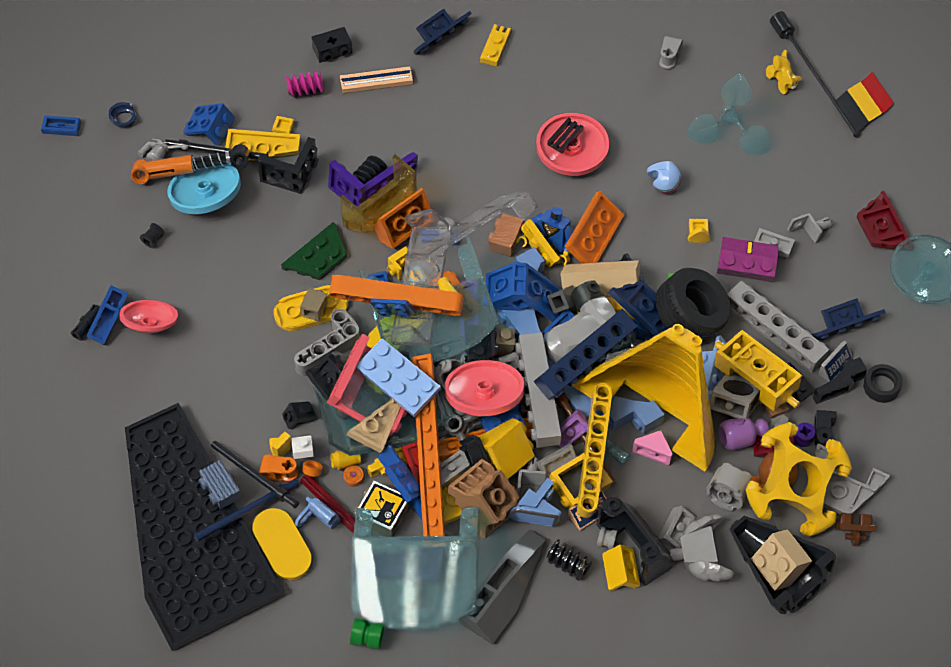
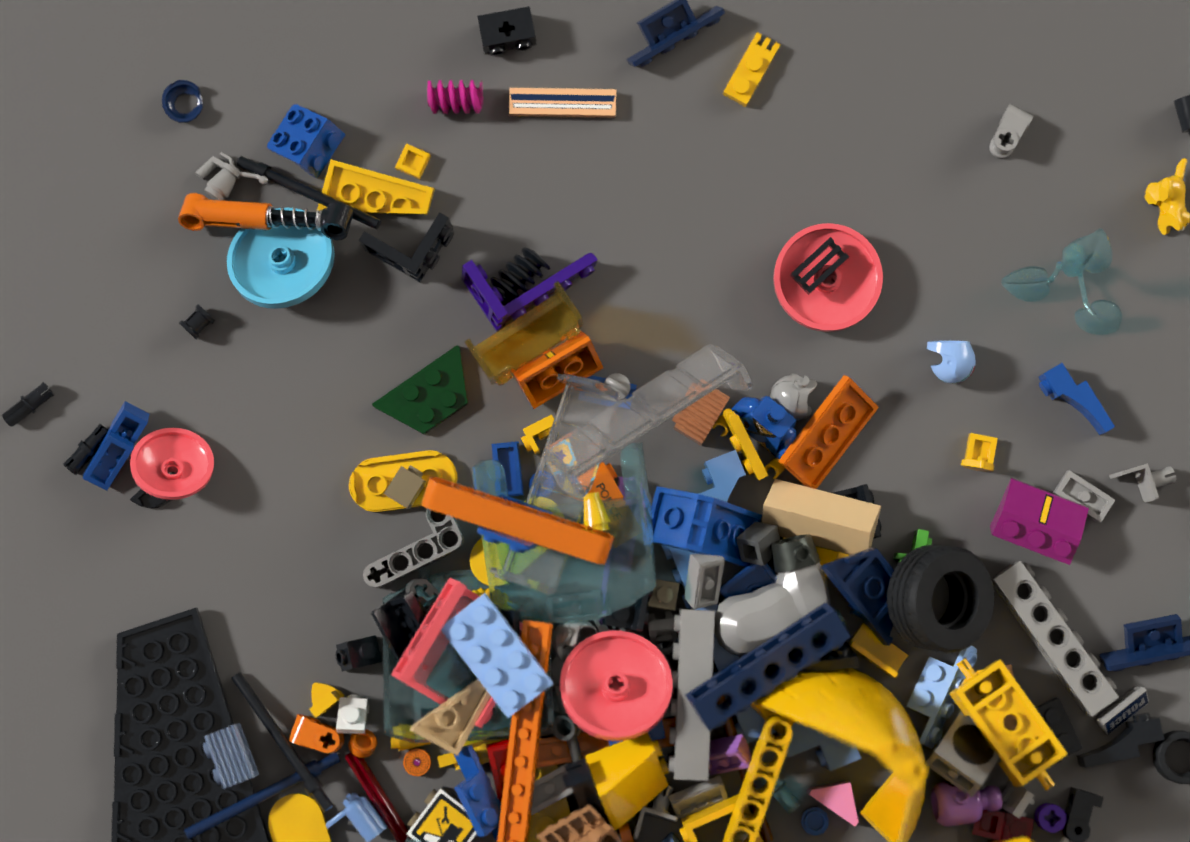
camera: 15 degrees right, 25 degrees up
(40, 301) = (27, 404): none -> black axle
(61, 127) = (114, 109): blue tile -> none
(134, 345) = (148, 501): none -> black tile
(530, 316) = (703, 580): none -> light grey slope
(568, 207) = (793, 393): none -> light grey cap
(642, 465) = (814, 821): none -> blue plate
(753, 186) = (1059, 384): none -> blue slope

